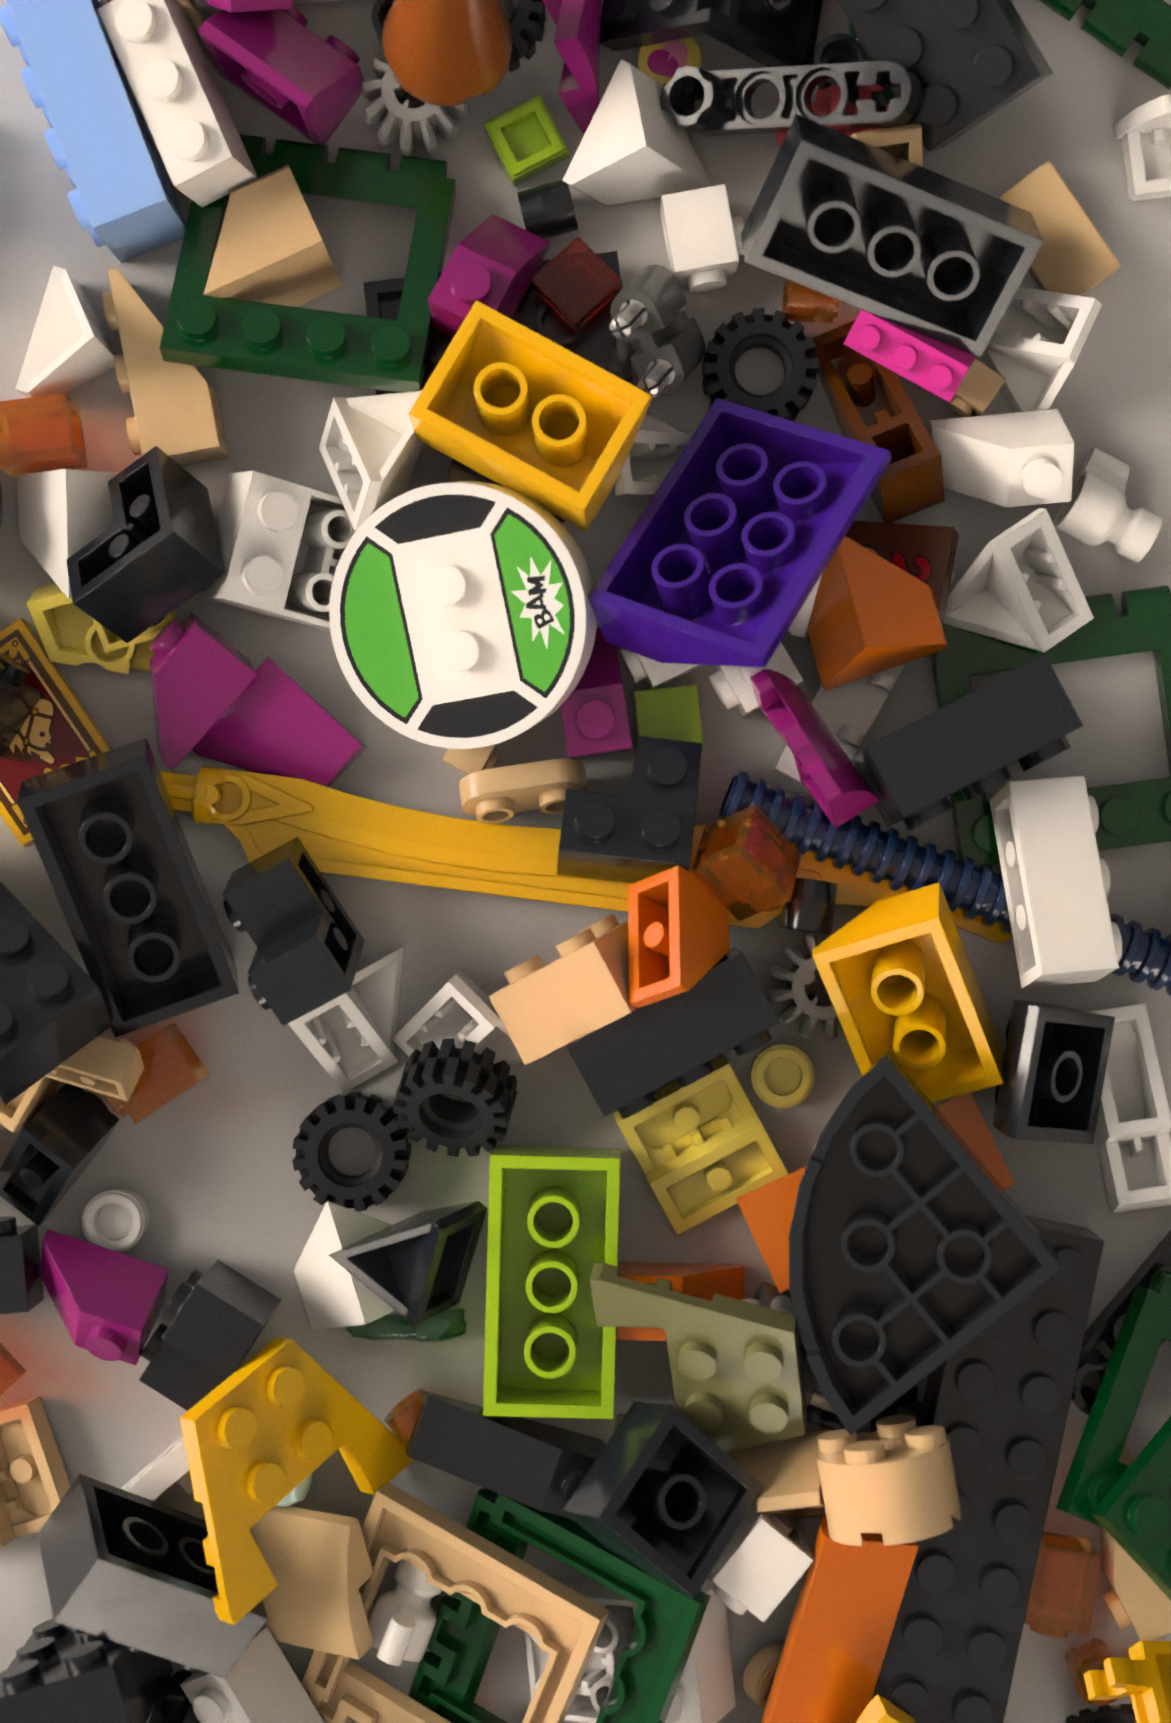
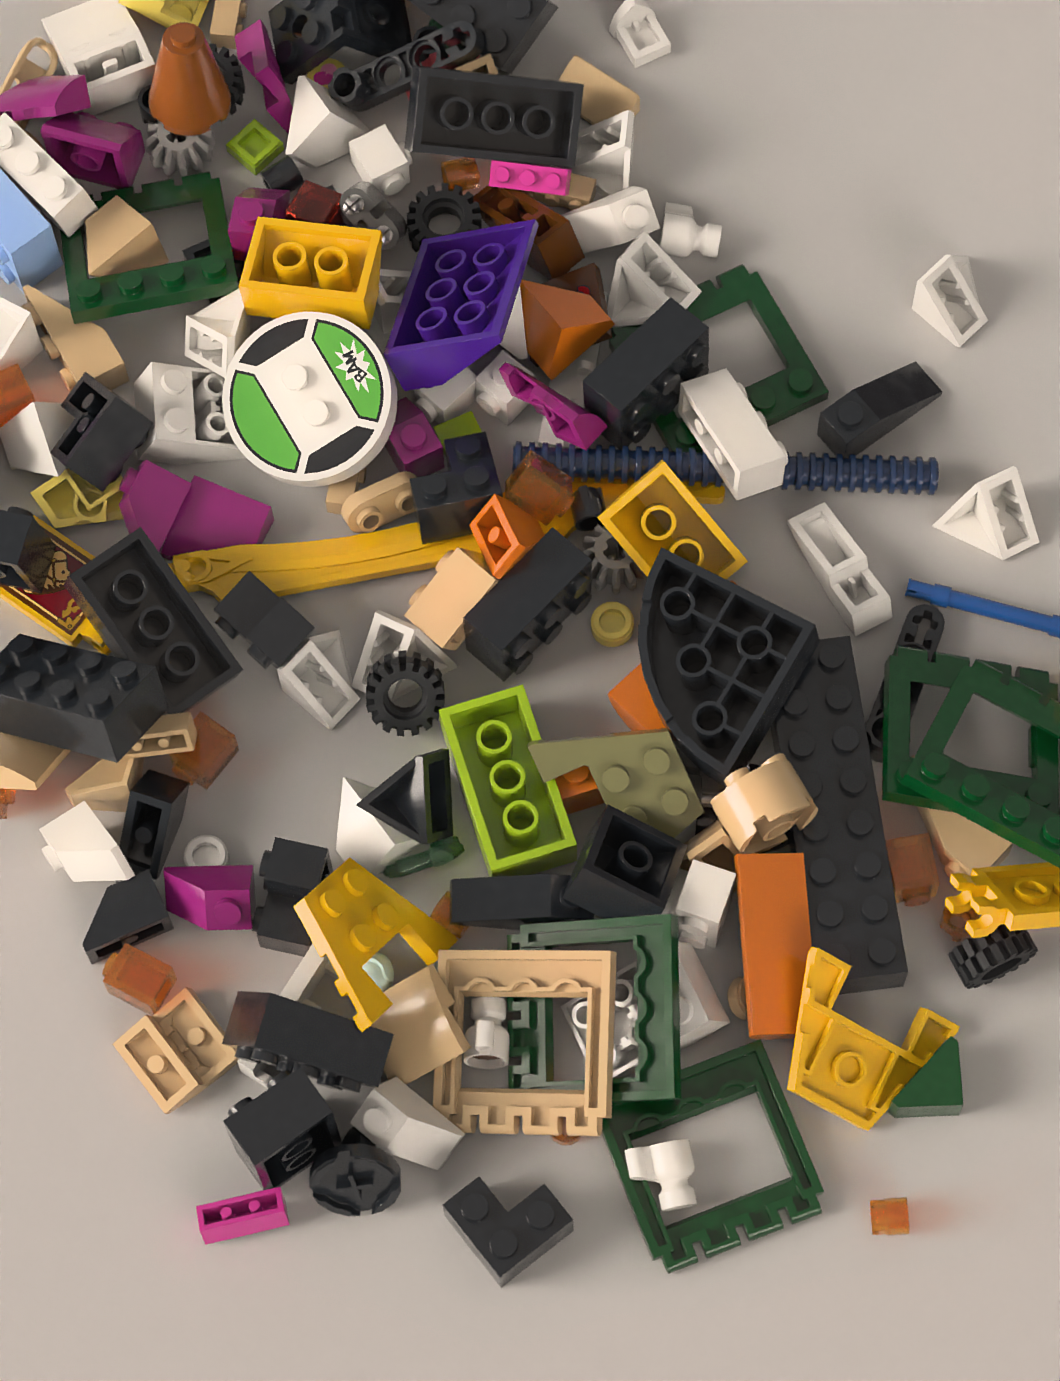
camera: 15 degrees left, 20 degrees down
(314, 1161) = (345, 733): black tyre -> none
(701, 1146) = (573, 681): light yellow slope -> none
(1052, 1073) = (778, 550): black slope -> none

